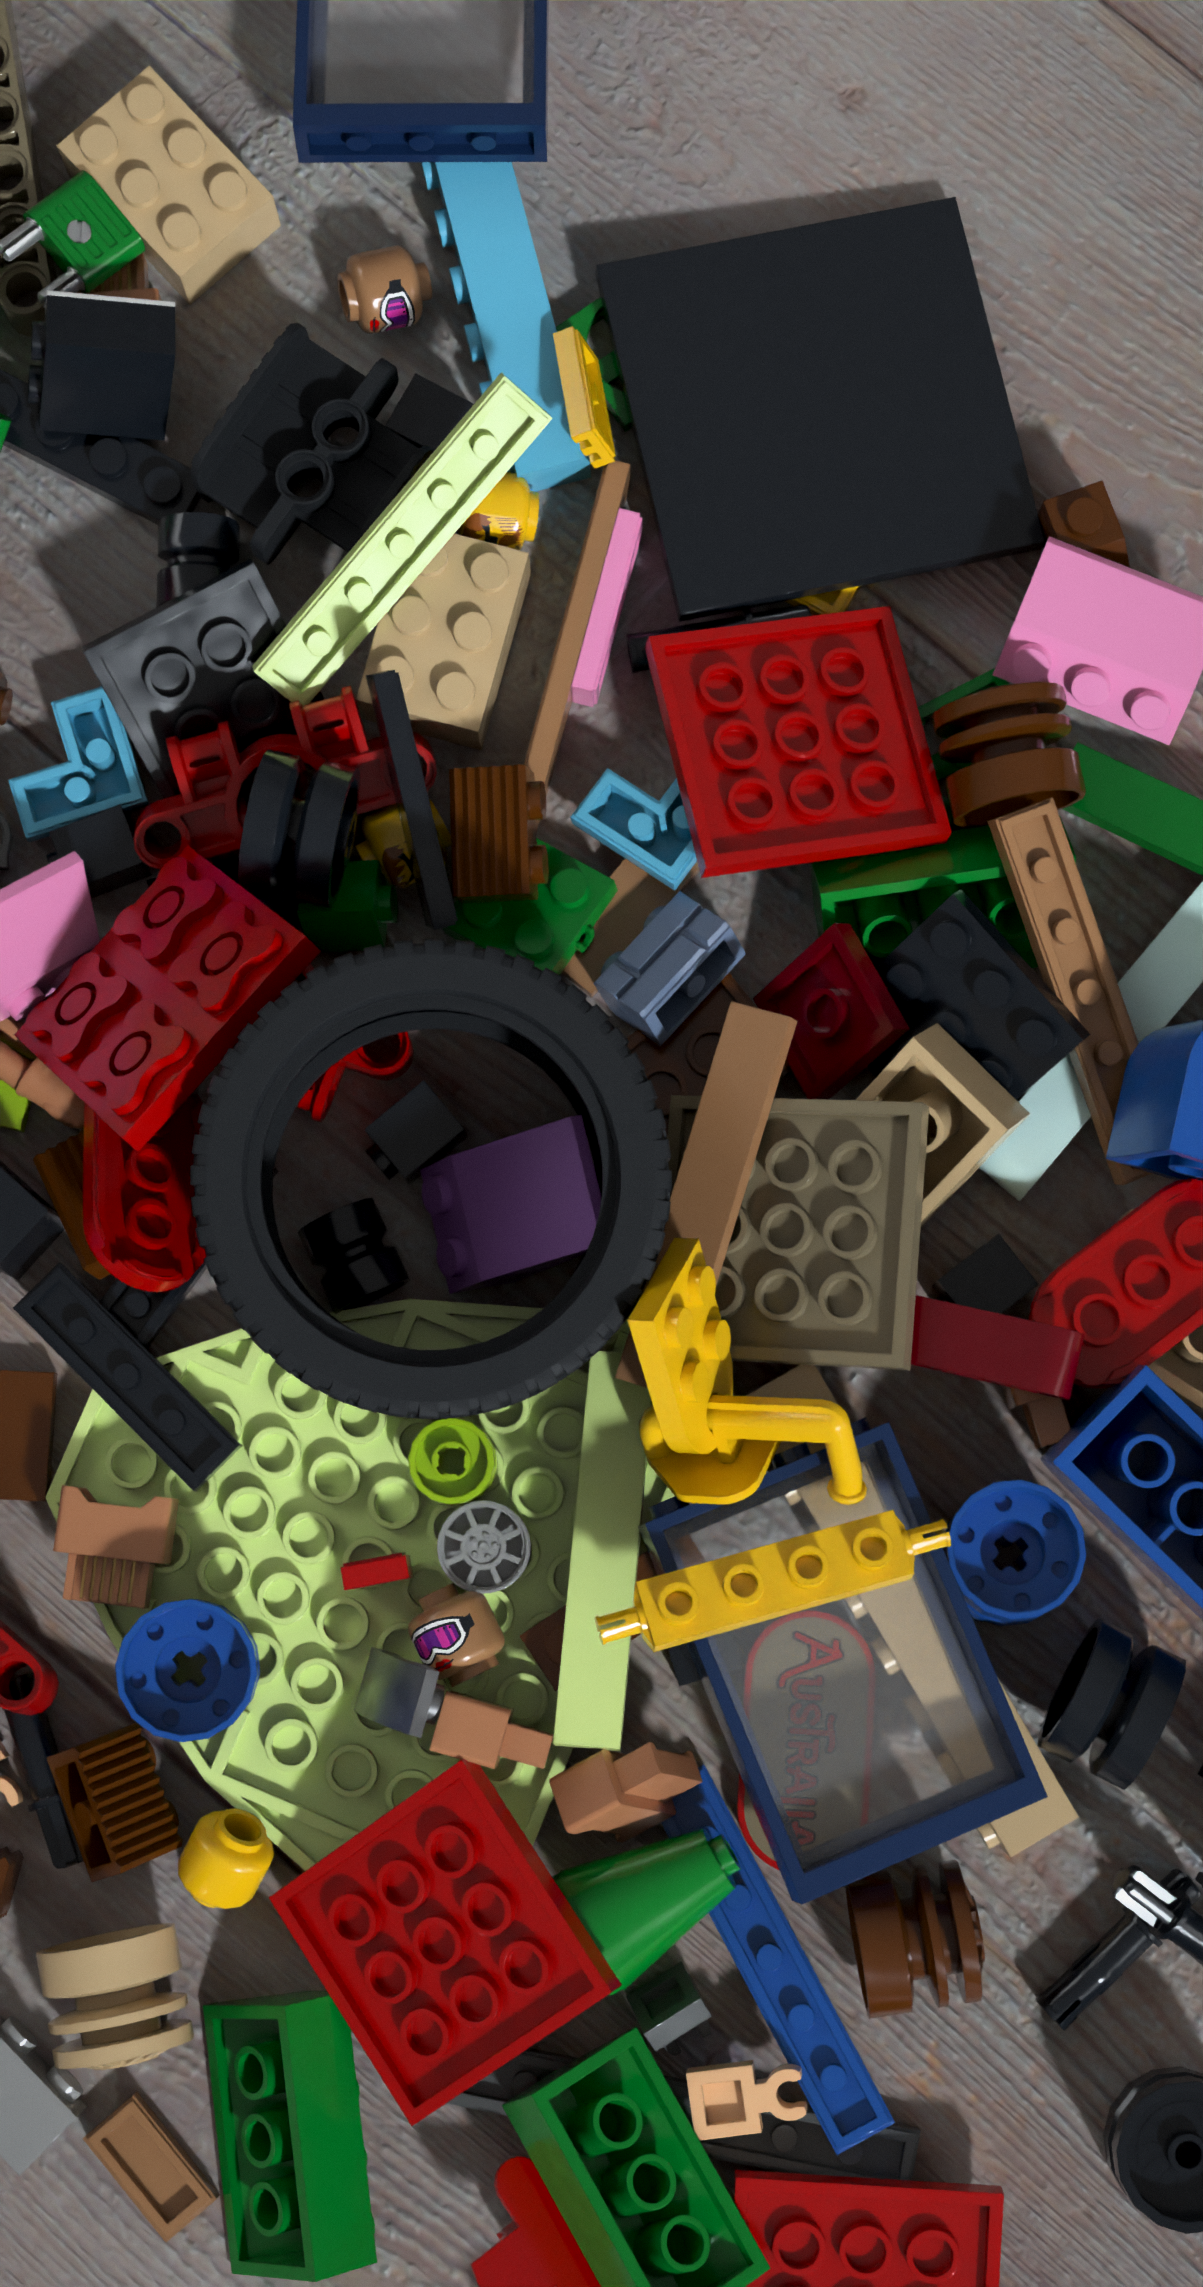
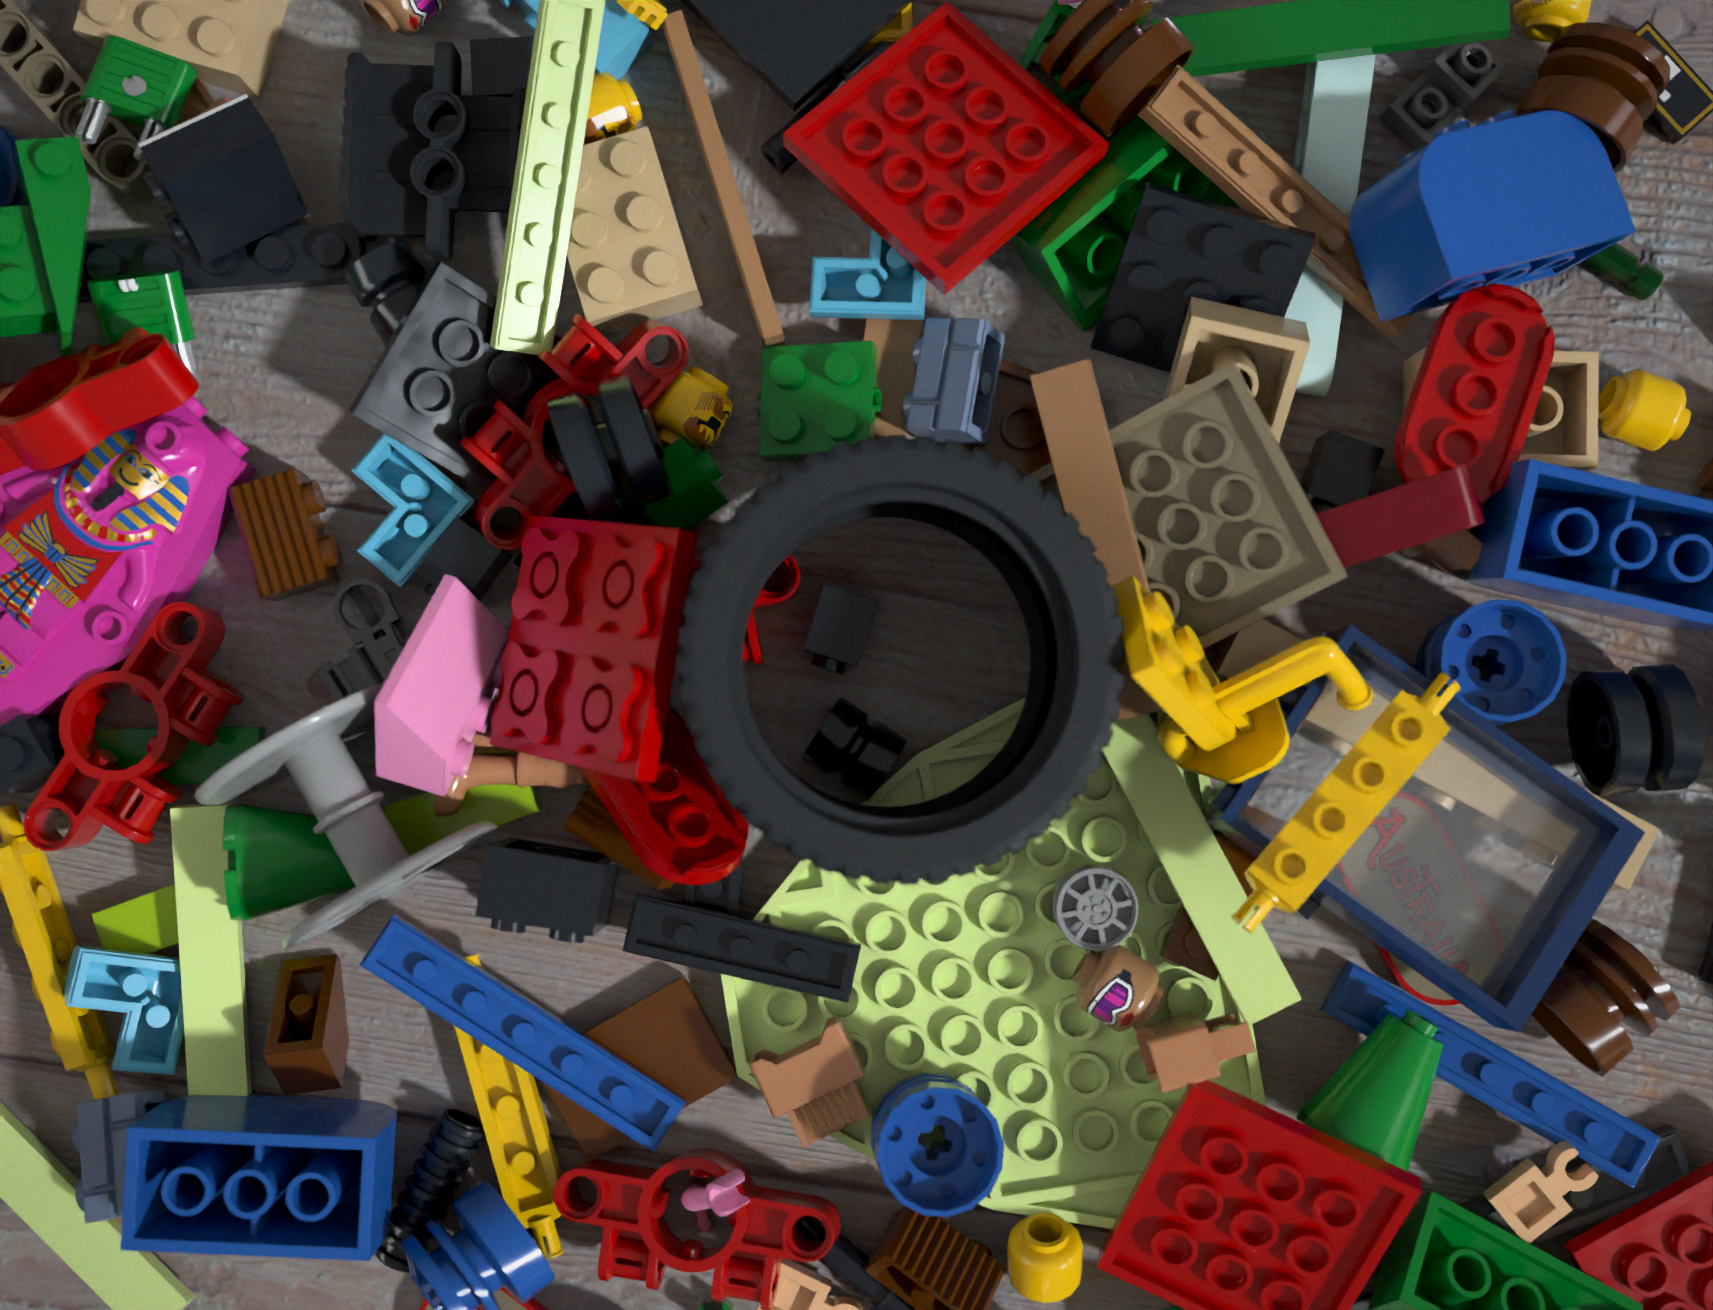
camera: 35 degrees left, 5 degrees up
(376, 1571) = (1026, 976): red tile -> none
(399, 1693) = (1106, 1060): flat silver slope -> none
(412, 799) = (681, 370): black tile -> none
(453, 1461) = (1040, 868): lime wheel -> none
(496, 834) = (761, 358): reddish brown brick -> none
(513, 1205) = (960, 635): medium lavender slope -> none
(607, 608) = (732, 133): bright pink tile -> none
(622, 1790) = (1313, 1025): nougat piece -> none
(670, 2008) = (1442, 1157): dark grey tile -> none
(839, 1011) = (1109, 327): dark red plate -> none

